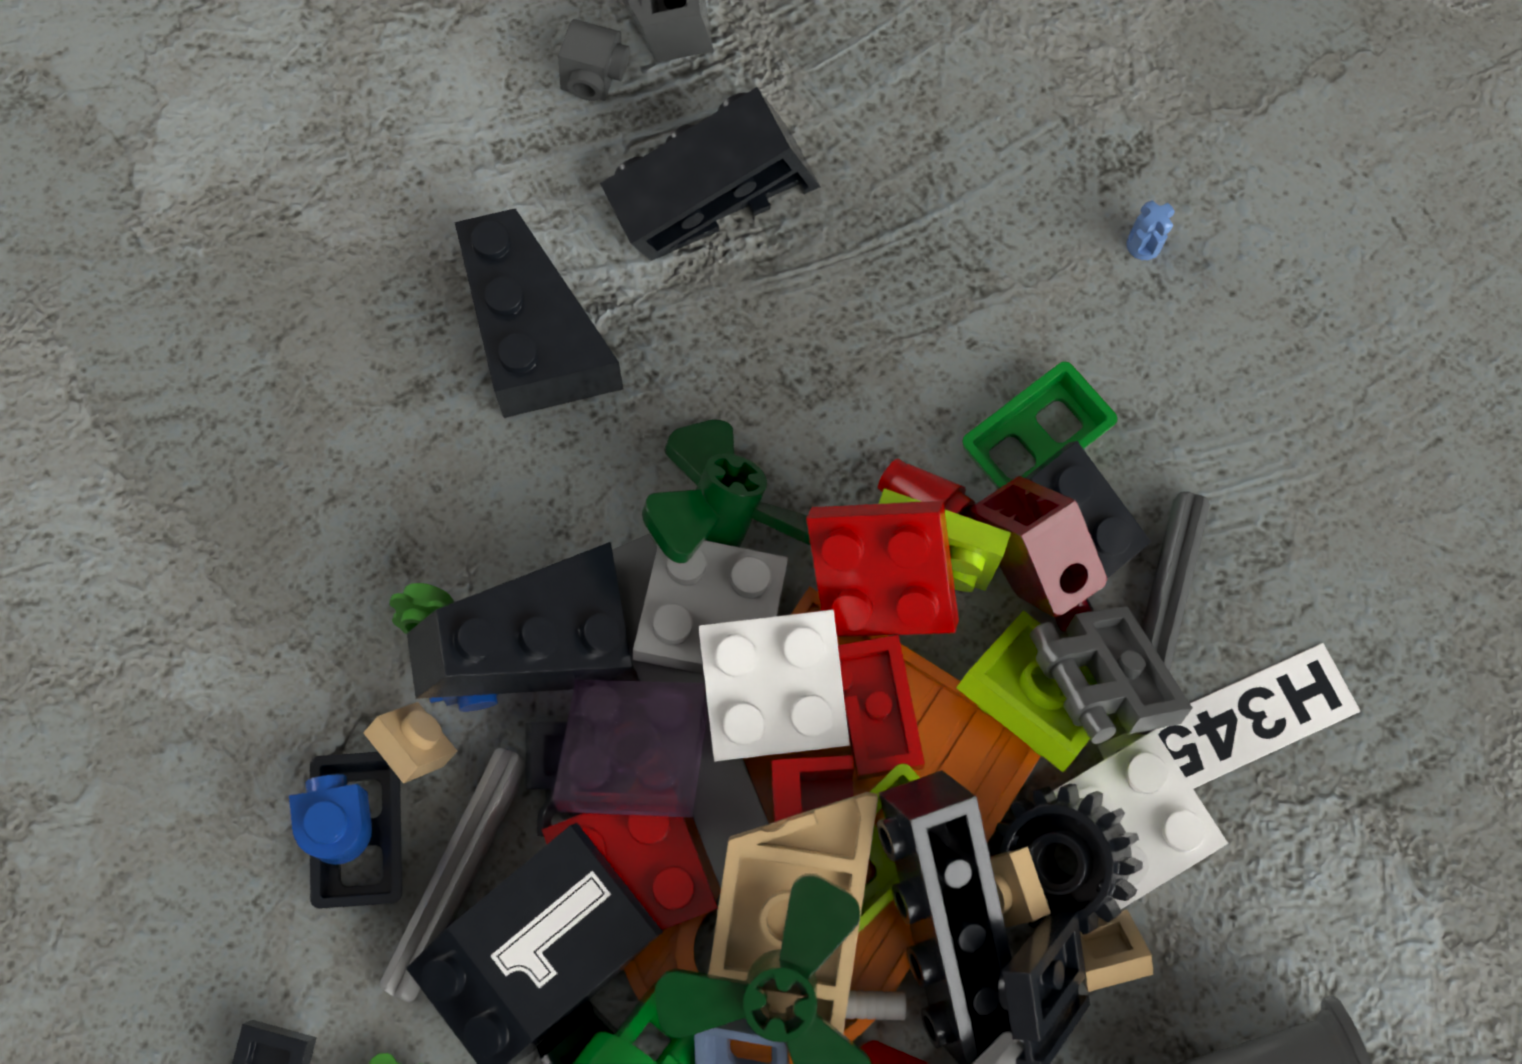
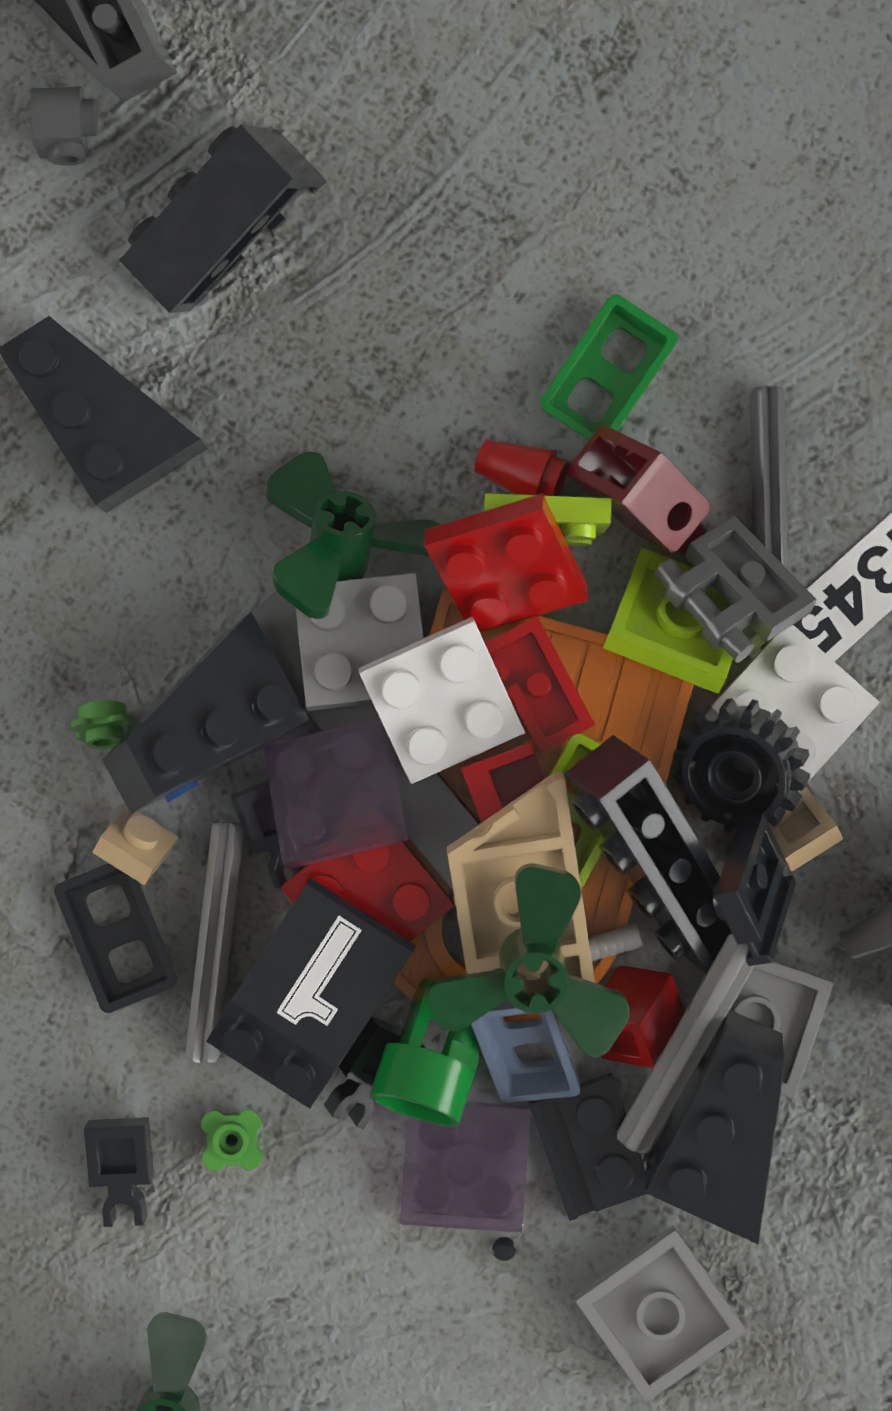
camera: 15 degrees left, 15 degrees up
(331, 819) = (94, 938): blue plate -> none
(1018, 887) = (704, 807): tan plate -> none
(1106, 517) = (676, 431): black plate -> none
(1150, 230) = (657, 133): medium blue piece -> none

